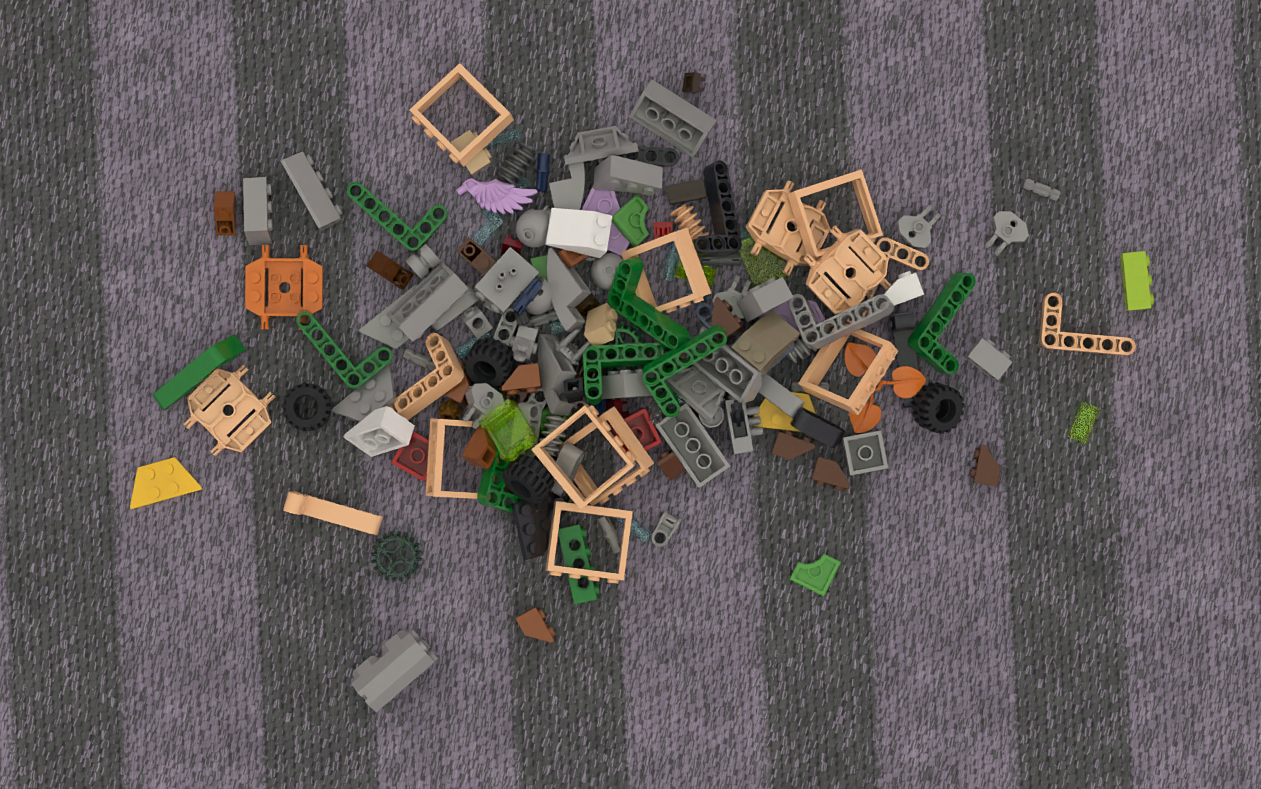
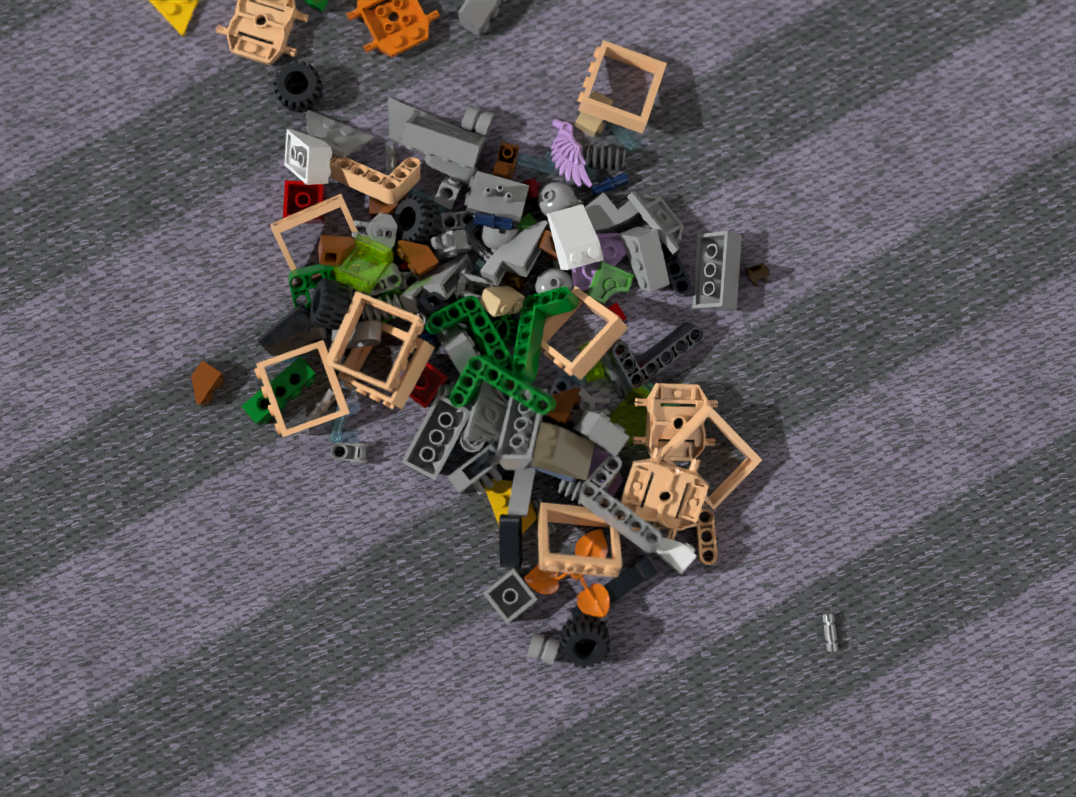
camera: 60 degrees right, 5 degrees down
(331, 512) = (208, 119): light nougat beam -> none
(339, 354) = (359, 89): green beam -> none
(386, 676) = (91, 272): light grey brick -> none
(389, 270) = (455, 97): reddish brown slope -> none
(389, 572) = (198, 229): clear green gear -> none
(394, 220) = (500, 78): green beam -> none
(449, 410) = (358, 210): pearl gold gear -> none
(618, 405) = (437, 352): dark red tile -> none
(670, 464) = (408, 426): reddish brown slope -> none
(671, 262) = (585, 337): clear light blue pin -> none
(686, 192) = (658, 317): dark brown panel -> none
(687, 221) = (635, 328): light nougat piece -> none
(790, 447) = (480, 525): reddish brown slope -> none
(816, 575) = (378, 610): bright green tile -> none
(829, 472) = (476, 573): reddish brown slope -> none
(918, 227) = (738, 538): light grey hinge -> none
(925, 447) = (543, 648): none -> light grey wheel
(939, 322) = (662, 602): green beam -> none
(986, 468) = (553, 714): reddish brown slope -> none
(988, 359) = (653, 664): light grey brick -> none
(1006, 232) = (775, 620): light grey hinge -> none
(1077, 338) = (714, 736): light nougat beam -> none
(1083, 422) = (641, 782): clear neon green plate -> none
(1136, 280) = (795, 763): lime brick -> none

